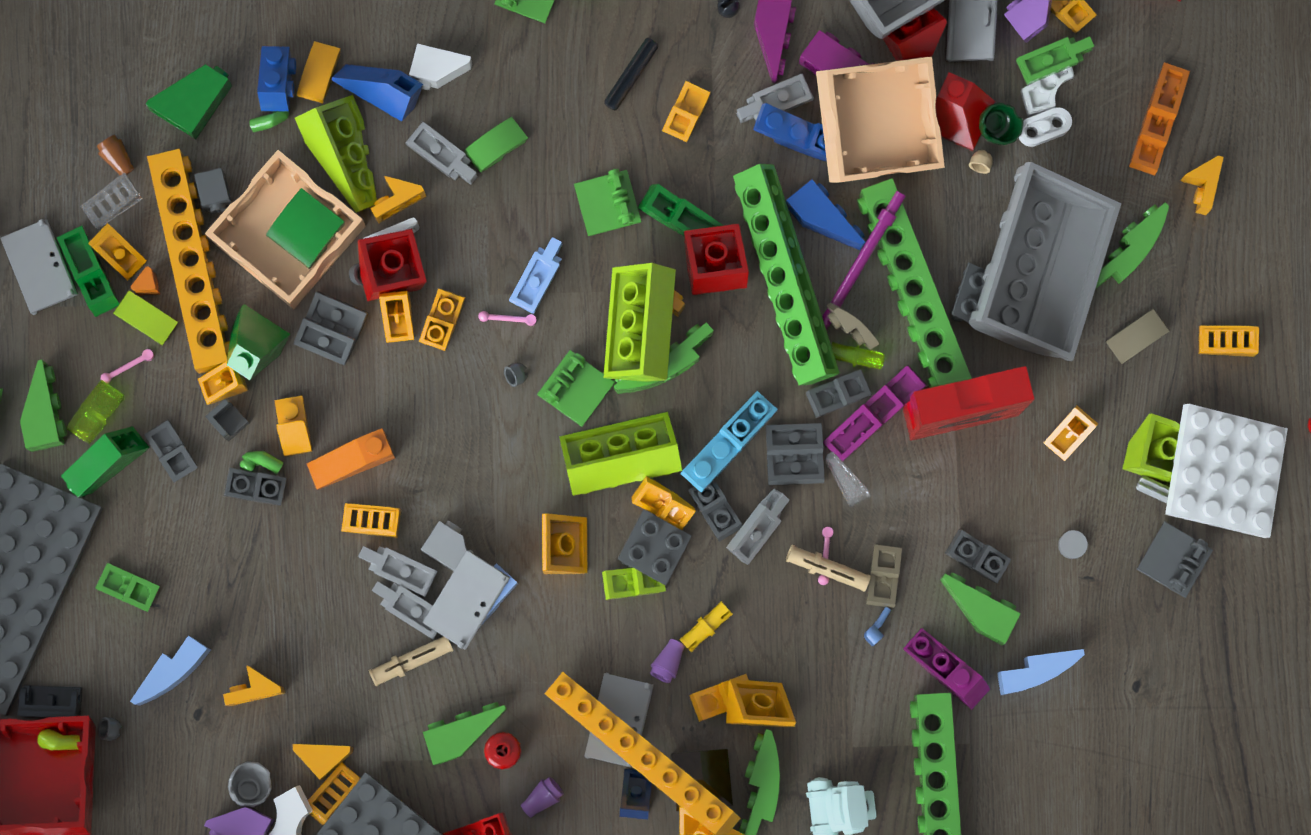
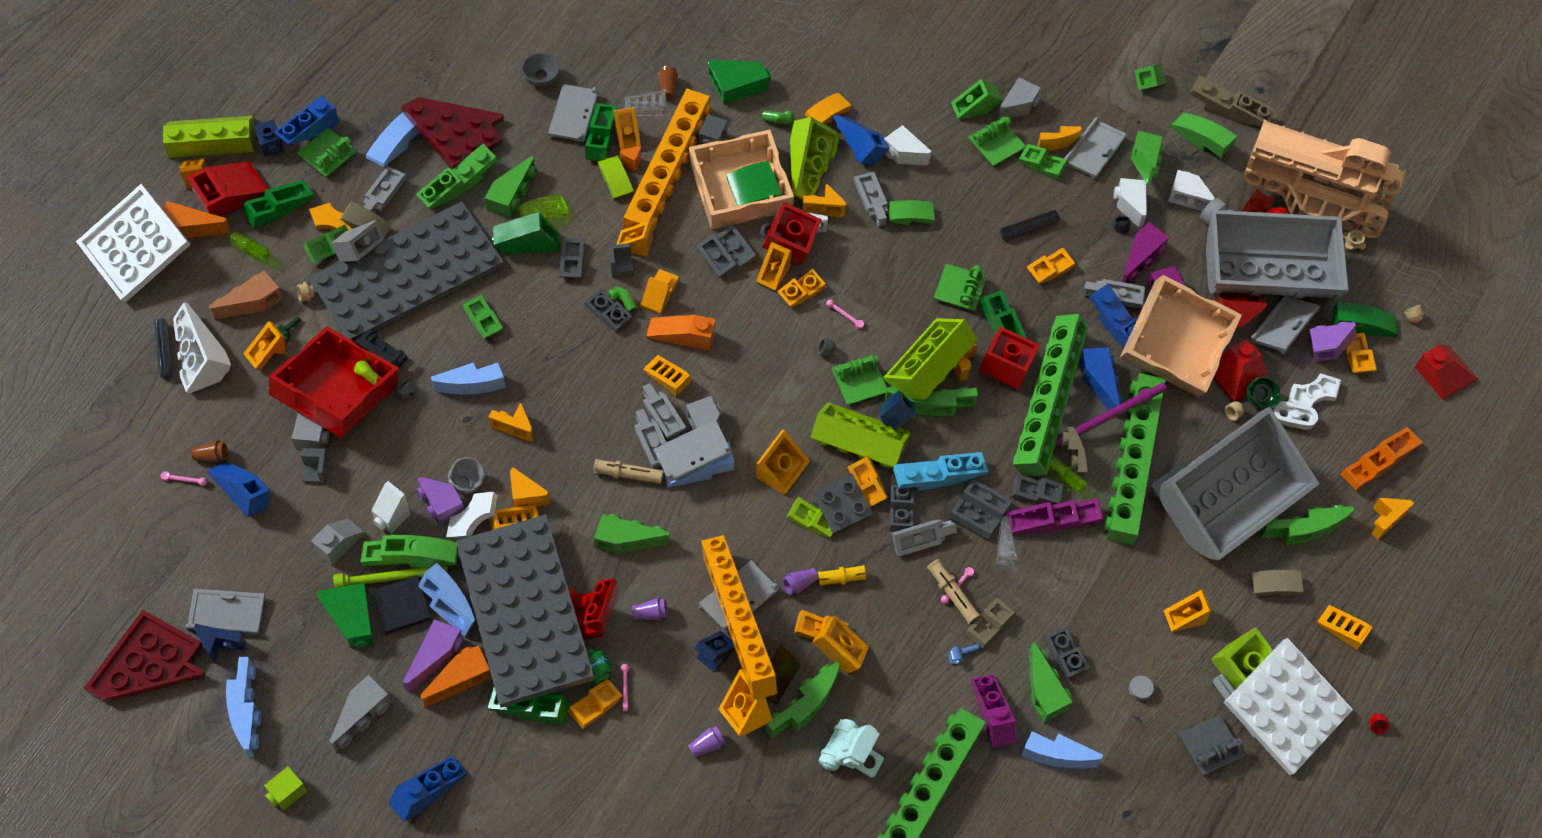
camera: 35 degrees right, 20 degrees down
(147, 355) = (600, 199): bright pink hinge -> none
(254, 342) = (672, 225): green slope -> none
(275, 78) = (798, 94): blue brick -> none
(509, 759) = (646, 561): red head -> none
(537, 277) = (882, 300): light blue hinge -> none
(643, 406) = (896, 410): none -> dark blue brick
(968, 403) = (1125, 536): red tile -> none
(1053, 58) = (1328, 375): bright green hinge -> none

